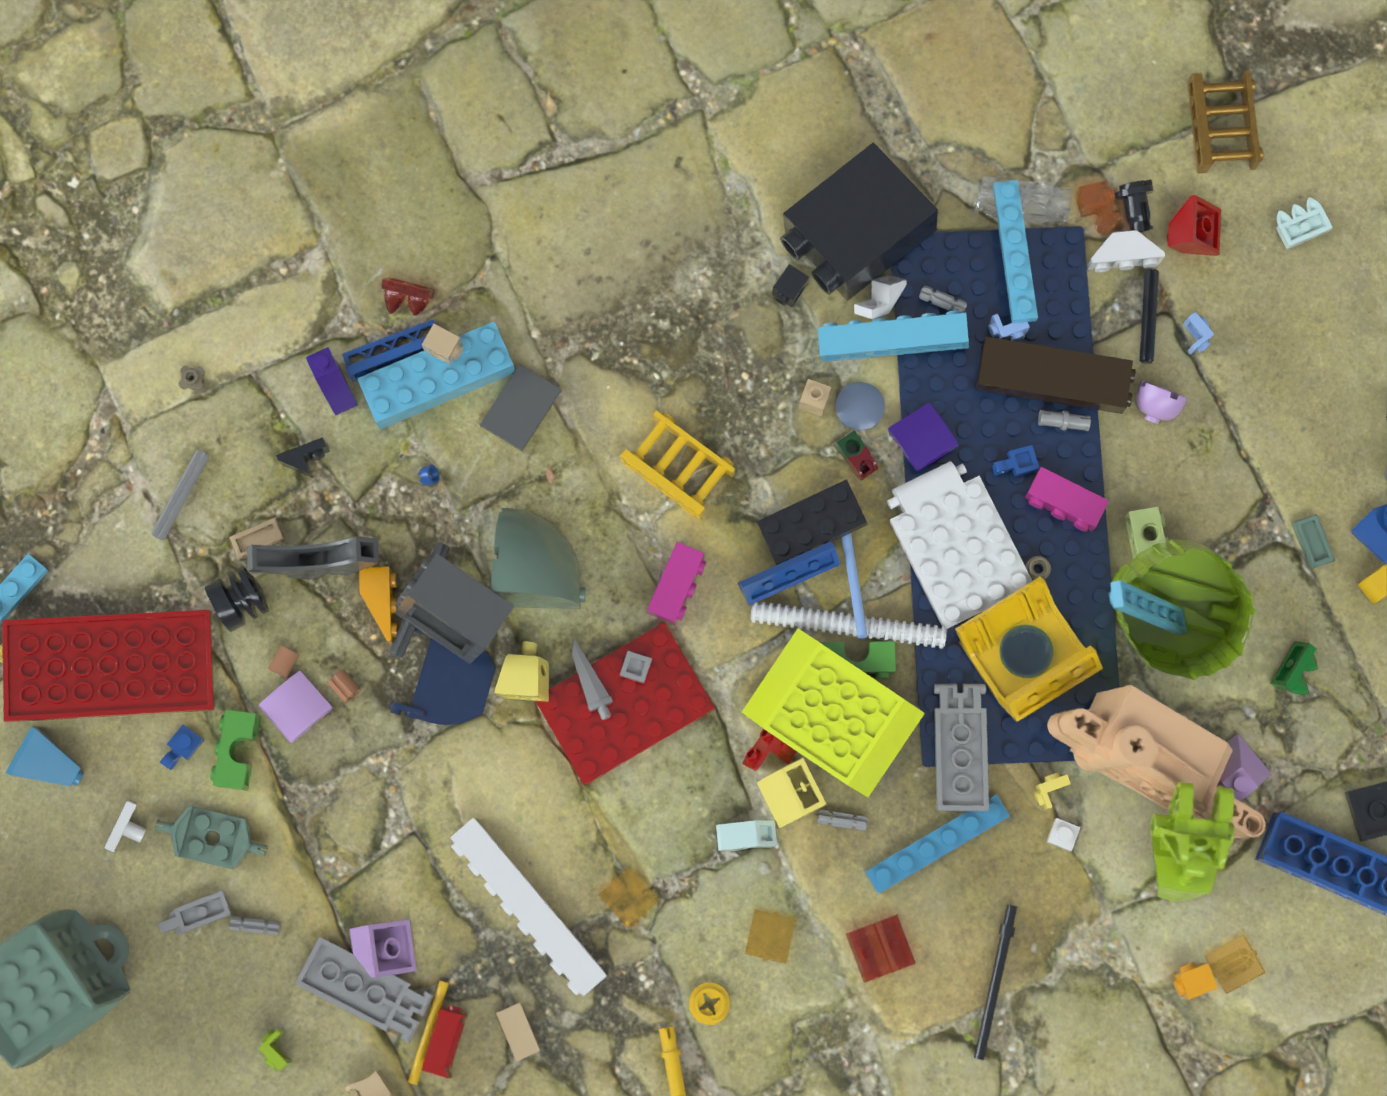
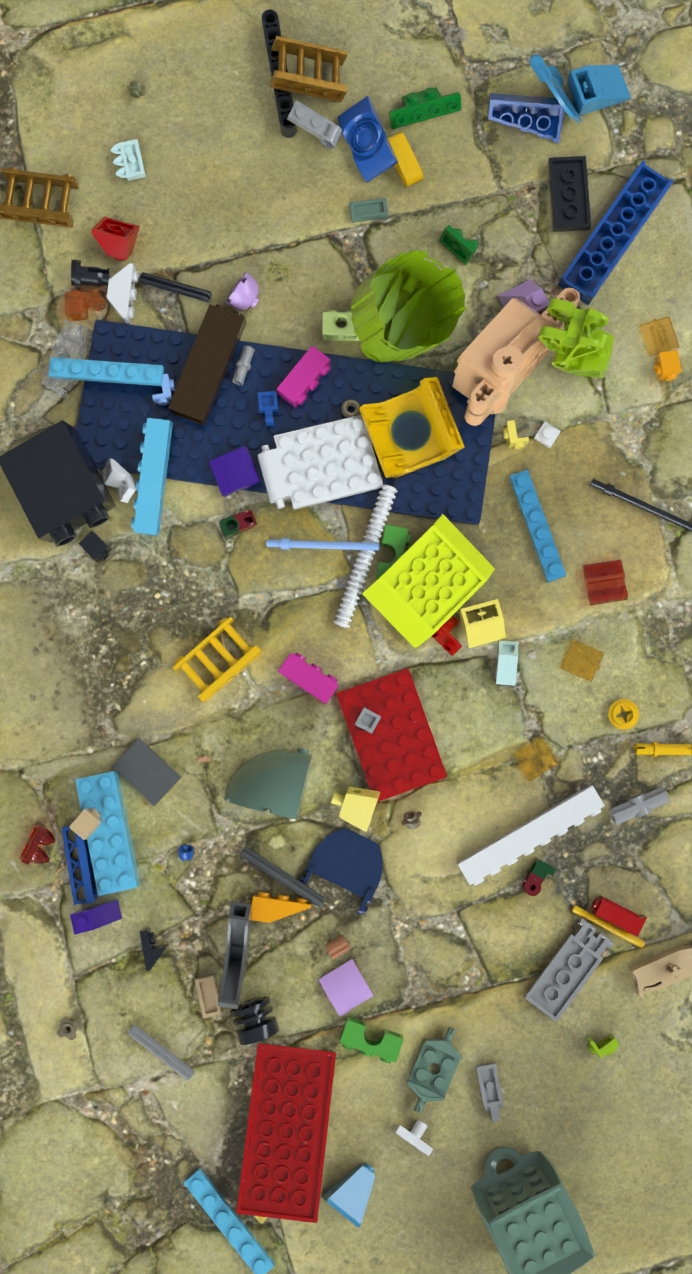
camera: 80 degrees left, 5 degrees up
(183, 744) = (358, 1080): blue plate -> none
(254, 925) = (506, 1046): light grey axle -> none
(283, 661) = (309, 991): nougat piece -> none
(384, 948) = (542, 949): lavender slope -> none
(452, 608) = (300, 851): dark grey window -> none
(467, 921) = (536, 876): none -> leg
(518, 1031) = (619, 859): tan tile -> none
(520, 750) = (412, 819): none -> dark tan plate
(592, 1045) = (639, 805): none -> light grey piece
(593, 689) = (376, 756): light grey bar -> none
(789, 573) = (317, 592): blue fence -> none
(812, 522) = (283, 567): black plate -> none
(814, 397) = (186, 545): tan brick -> none
(841, 819) = (508, 590): light grey axle -> none
(860, 406) = (199, 514): sand blue dish -> none
(942, 299) = (131, 434): light grey axle -> none
(961, 749) = (473, 493): light grey hinge -> none
(1148, 607) = (403, 332): medium azure plate -> none
(1200, 330) = (195, 252): light blue bracket -> none

